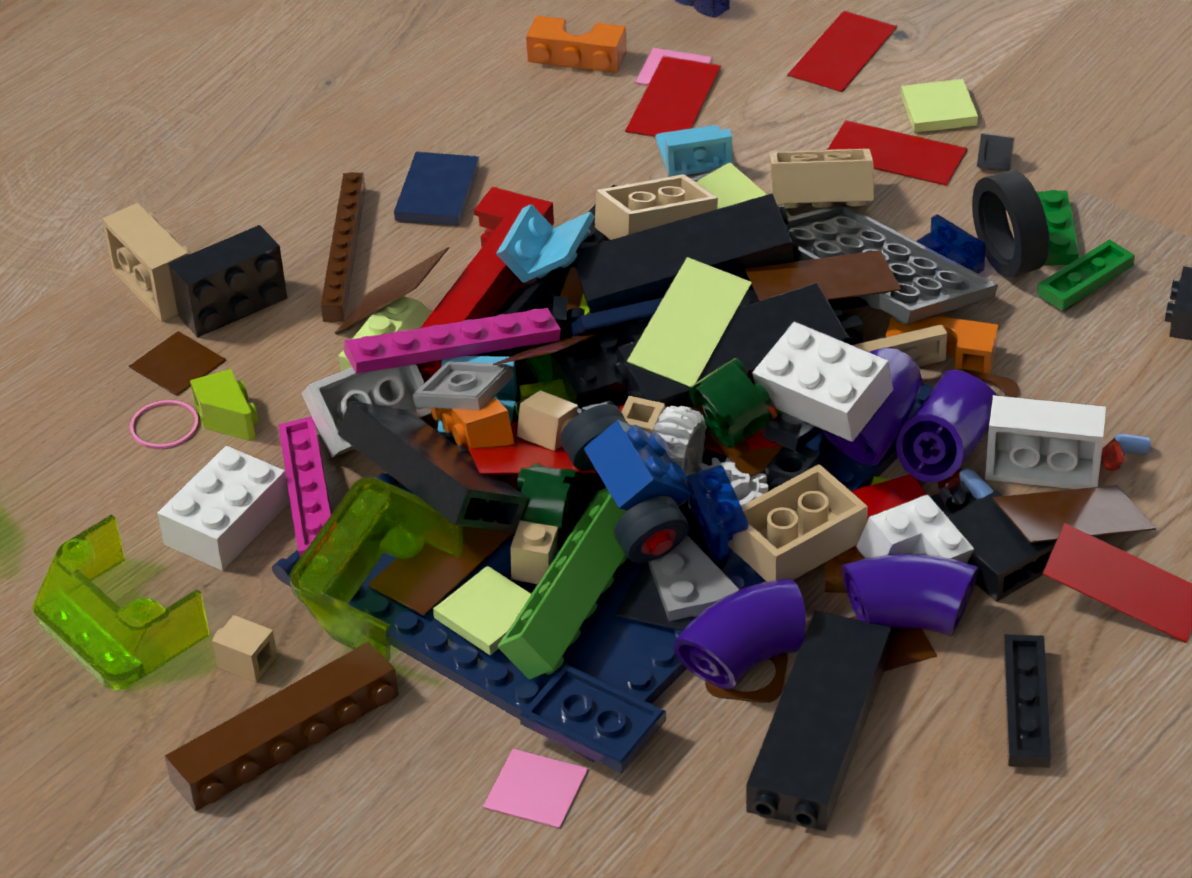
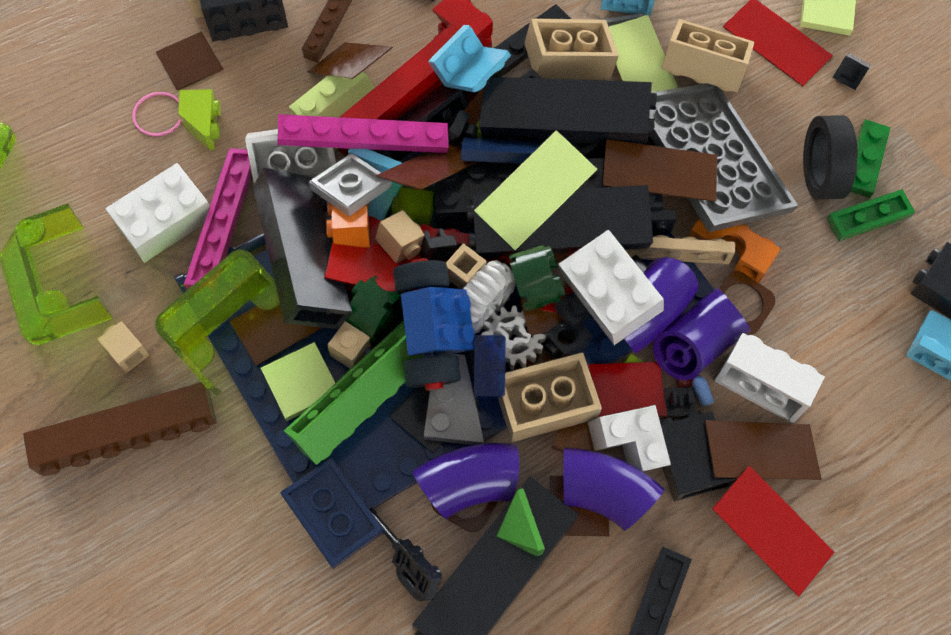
camera: 15 degrees right, 25 degrees up
(535, 788) = (275, 547): bright pink piece -> none
(710, 727) = (412, 568): none -> black piece
(832, 648) = (520, 527): none -> bright green slope
(955, 244) = (781, 153): clear blue bracket -> none
(1119, 446) = (830, 392): arm -> none

